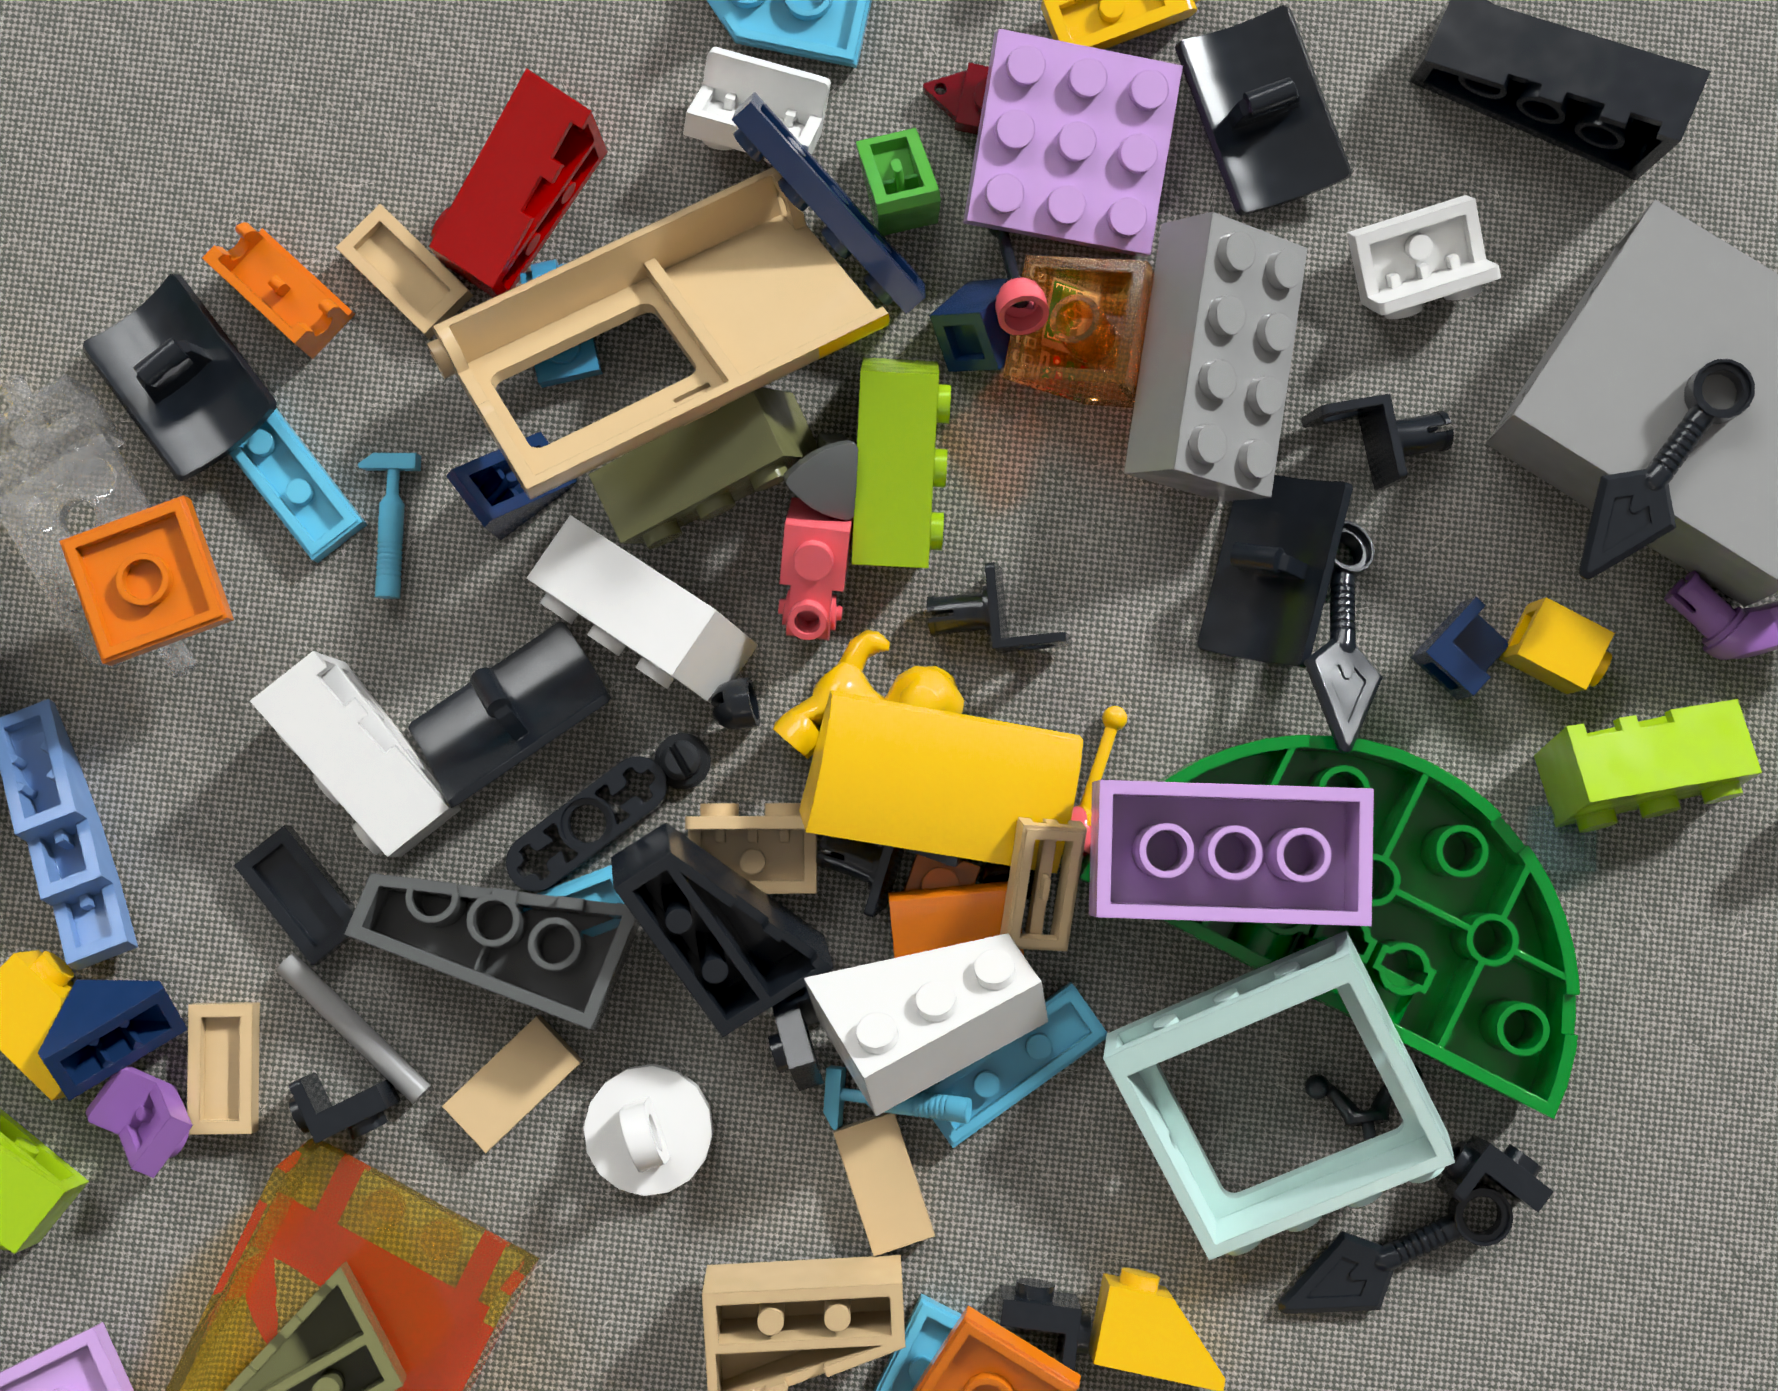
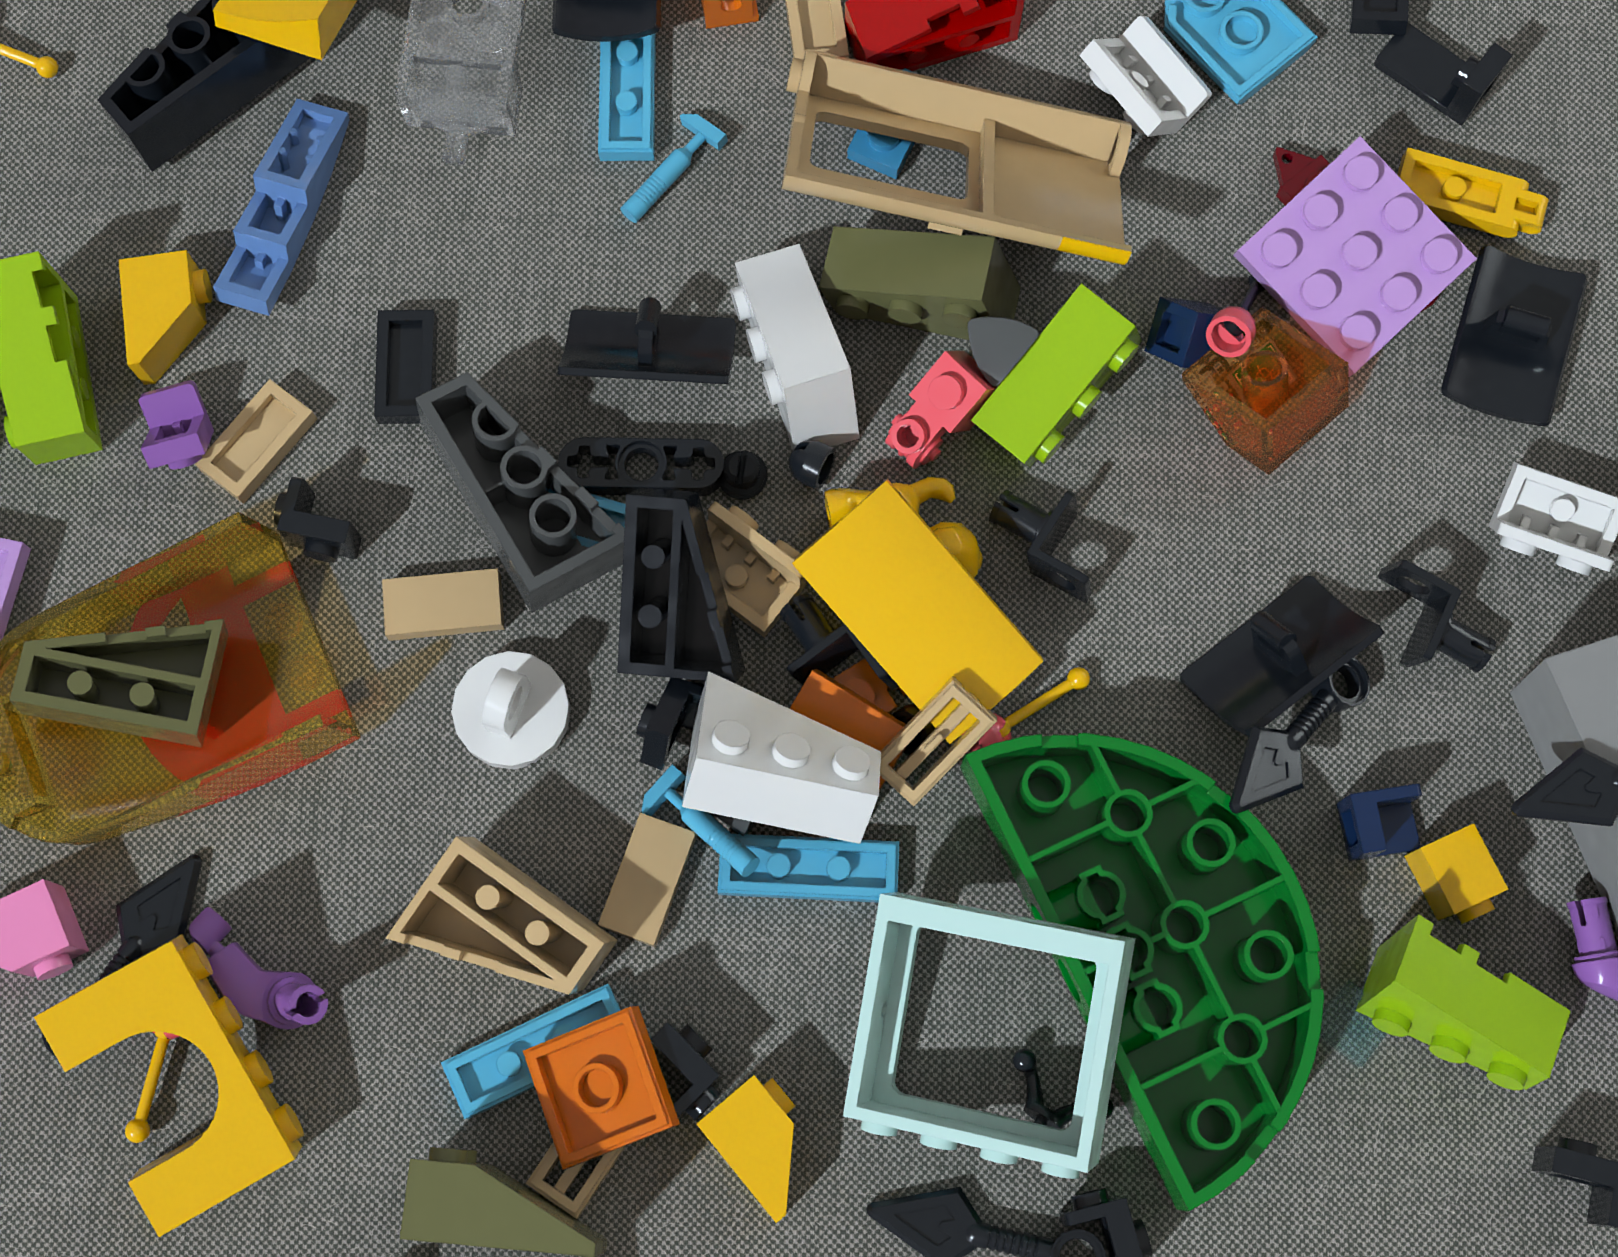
camera: 40 degrees right, 10 degrees down
(107, 1029) = (202, 348): dark blue slope -> none
(146, 580) = (479, 70): orange tile -> none
(353, 1028) = (366, 483): light grey bar -> none
(355, 754) = (522, 293): white wedge -> none
(496, 494) = (765, 208): dark blue slope -> none
(809, 185) = (1142, 144): dark blue plate -> none
(899, 182) = (1206, 200): bright green slope -> none
(1216, 358) = (1348, 472): light grey piece -> none
(1231, 852) = (1091, 808): lavender brick -> none

